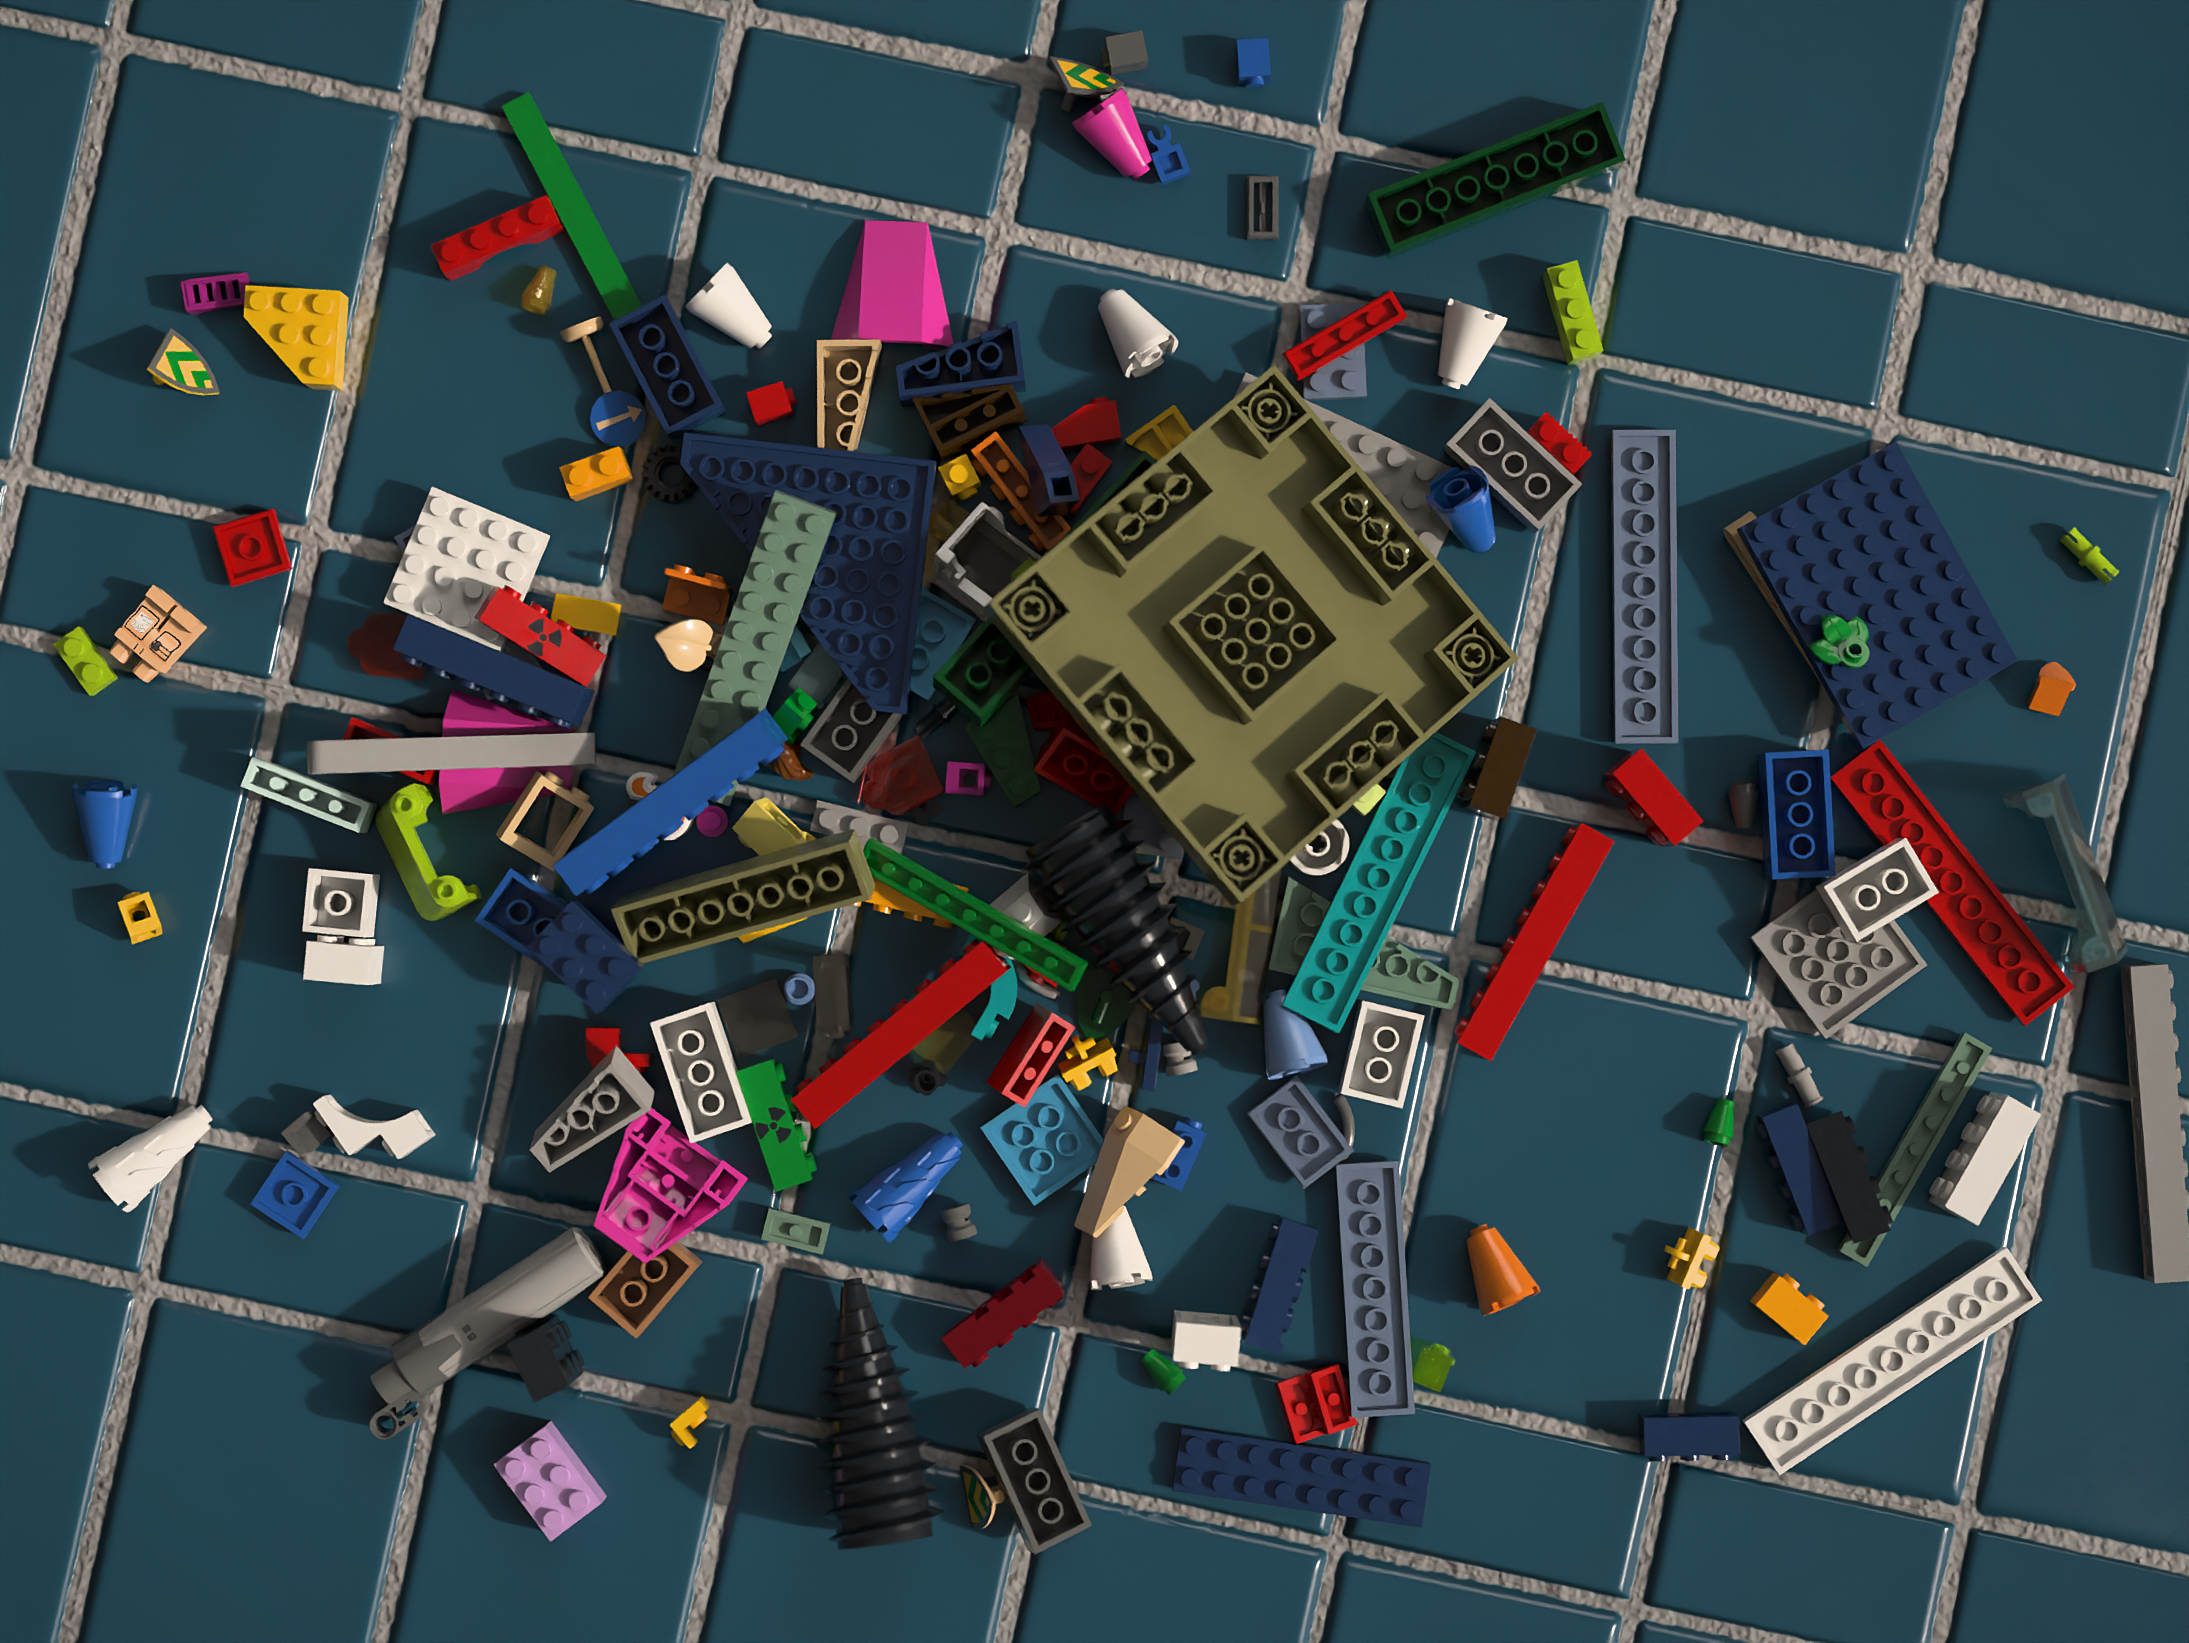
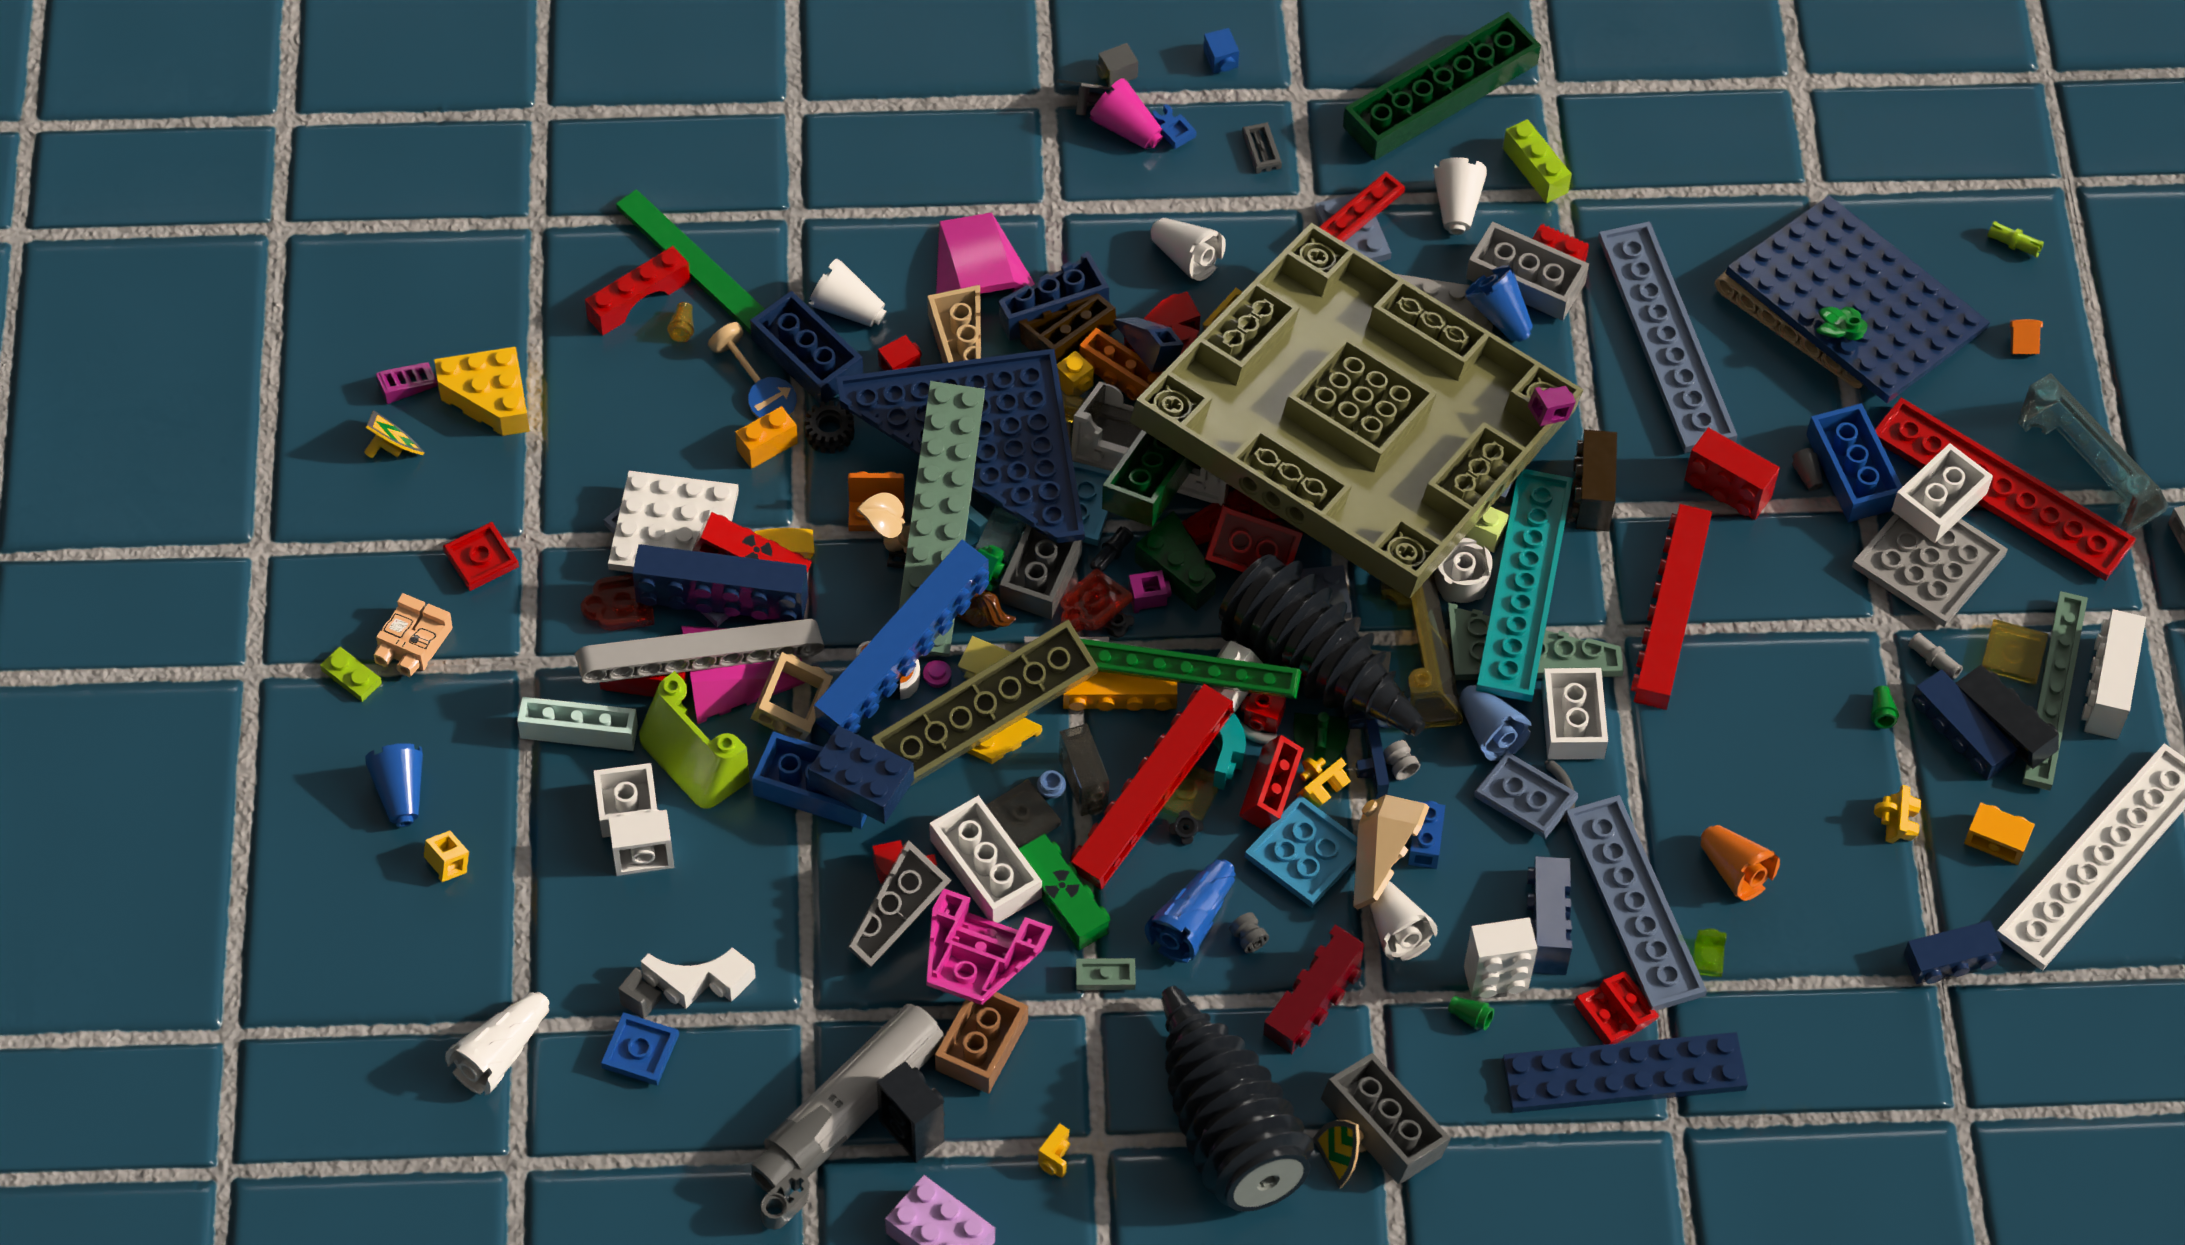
camera: 15 degrees left, 30 degrees down
(1471, 685) = (1551, 405): none -> magenta brick
(1888, 1088) = (2014, 651): none -> clear yellow tile

